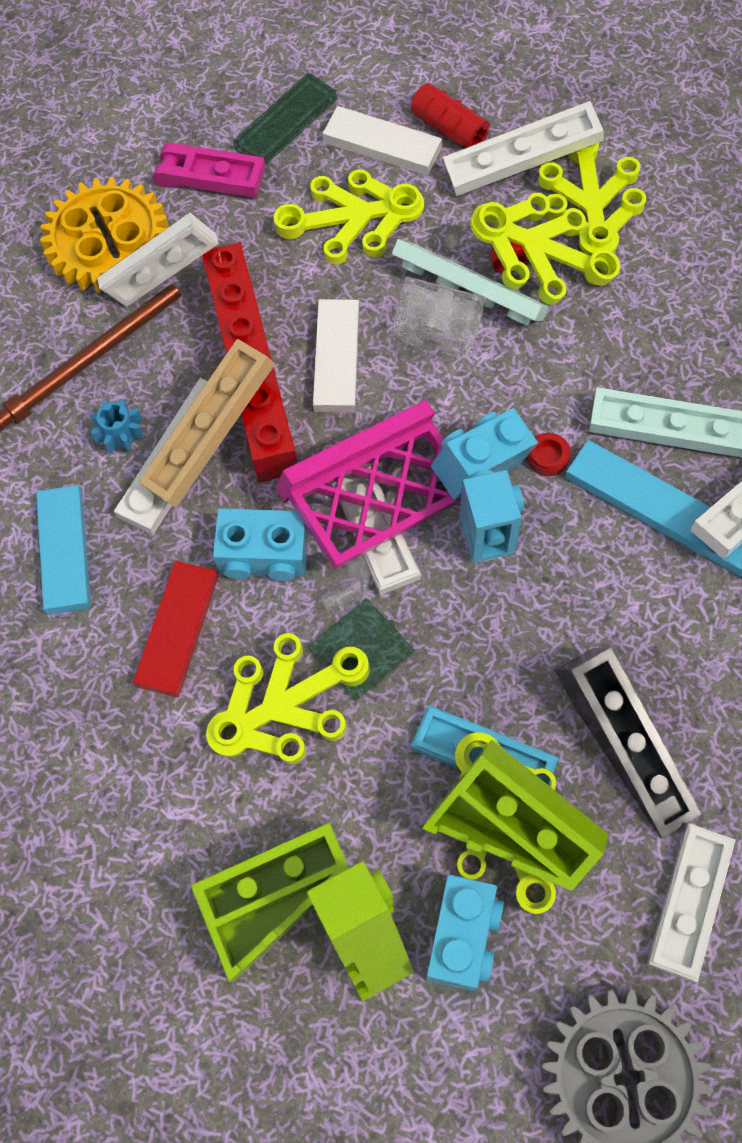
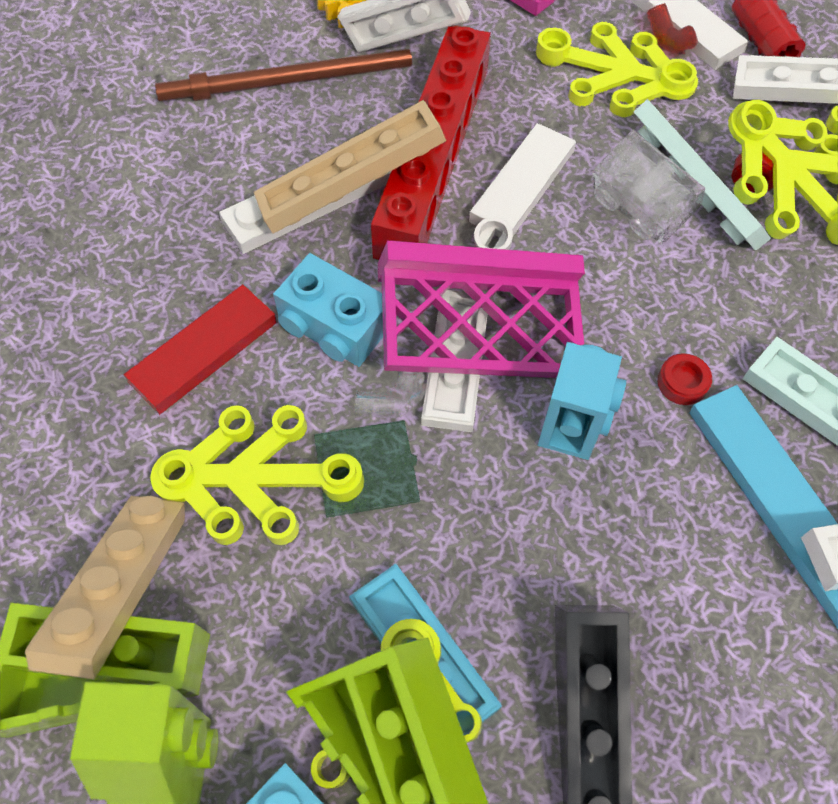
camera: 25 degrees right, 5 degrees down
(63, 550) = (151, 224): medium azure tile -> none
(116, 425) = (273, 139): dark azure gear -> none
(250, 832) = (106, 589): none -> tan plate
(354, 418) = (485, 230): none -> white hinge
(375, 165) = (667, 35): none -> clear red arm
(493, 445) = (628, 328): medium azure brick -> none

